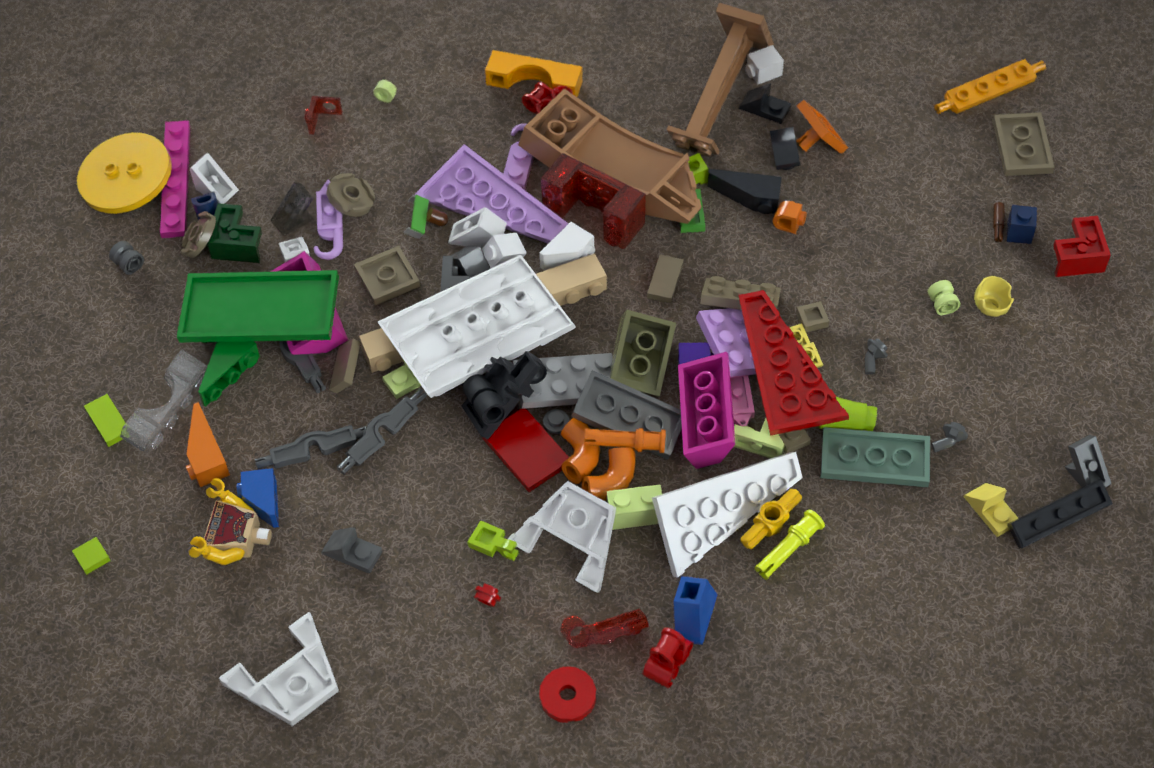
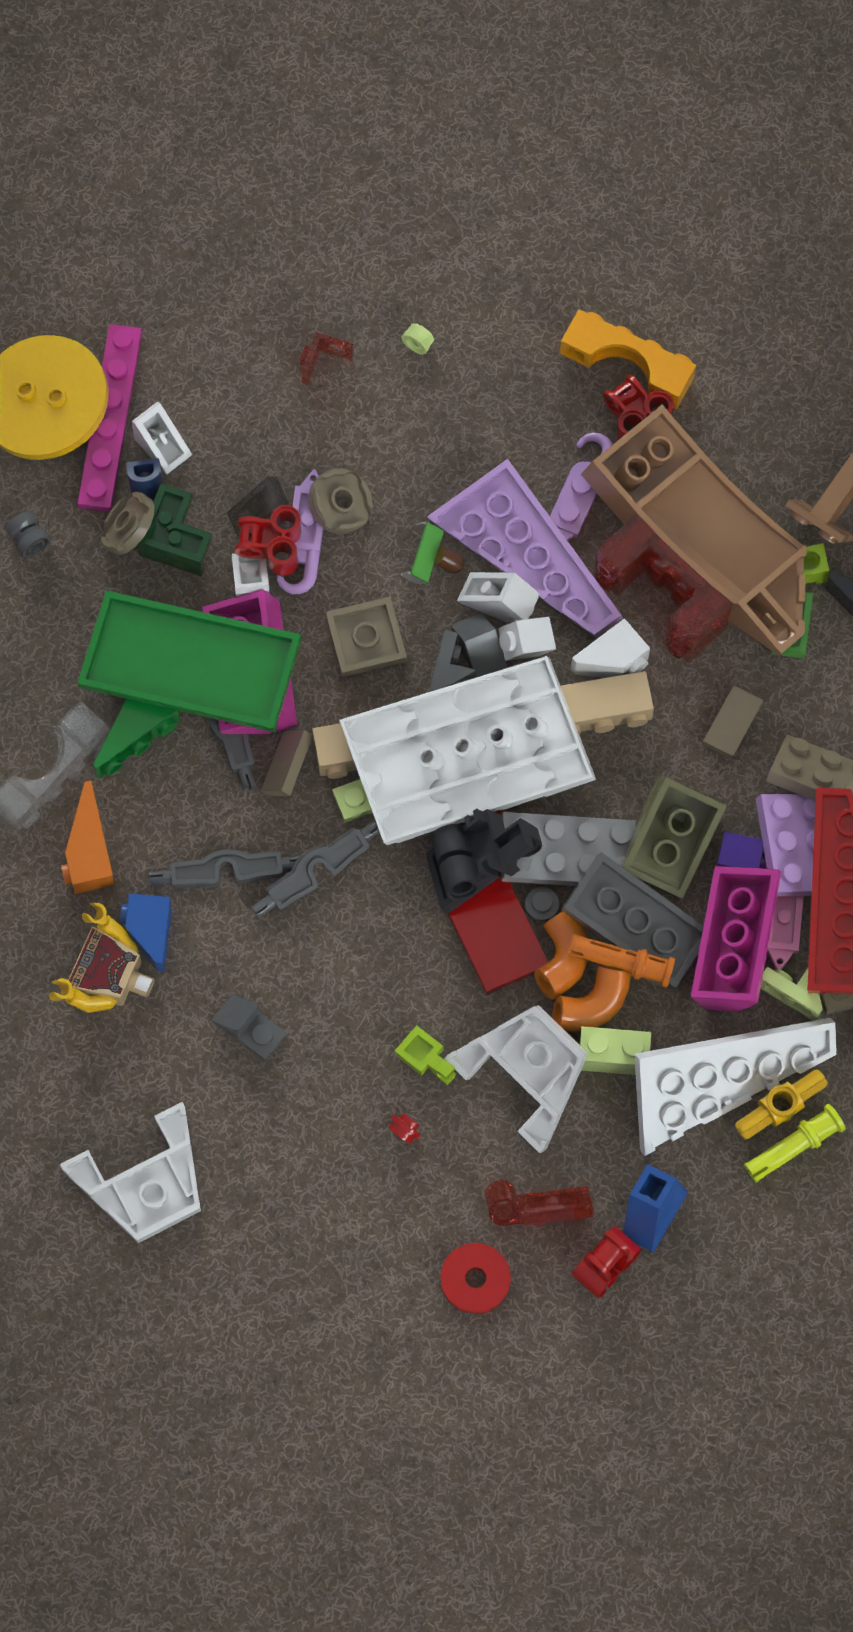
camera: 10 degrees right, 15 degrees up
(305, 223) = (270, 539): none -> red piece

